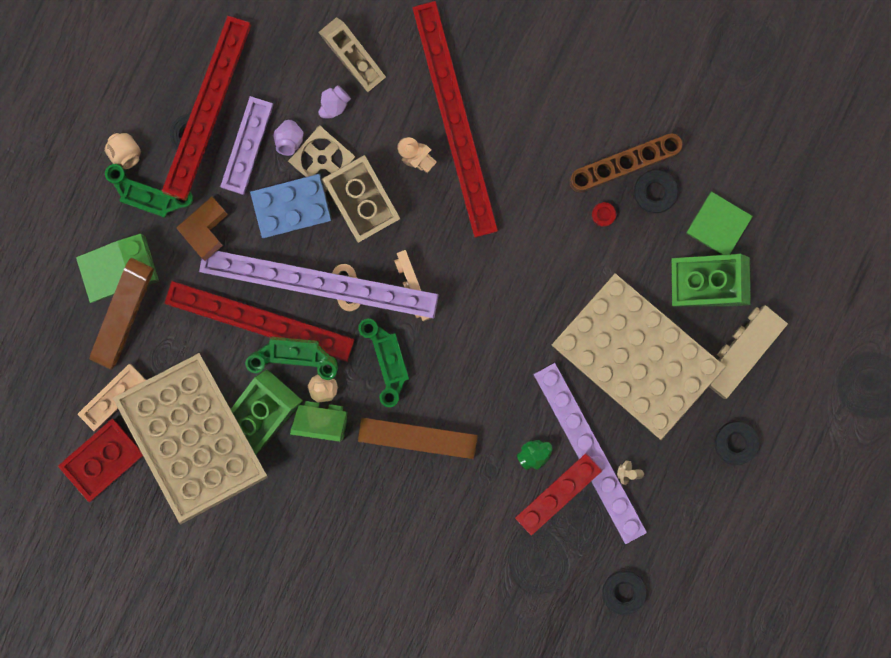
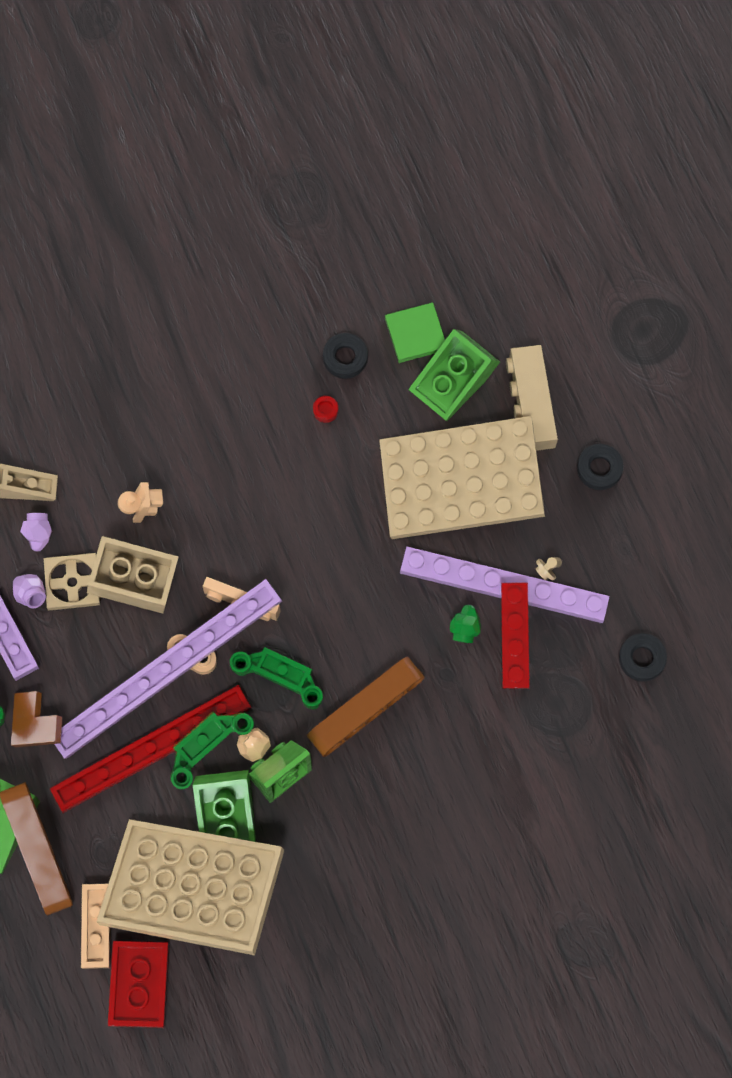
camera: 50 degrees left, 15 degrees down
(291, 206) = (84, 637): medium blue plate -> none
(454, 119) = (143, 452): red plate -> none
(635, 157) = (305, 346): dark orange beam -> none

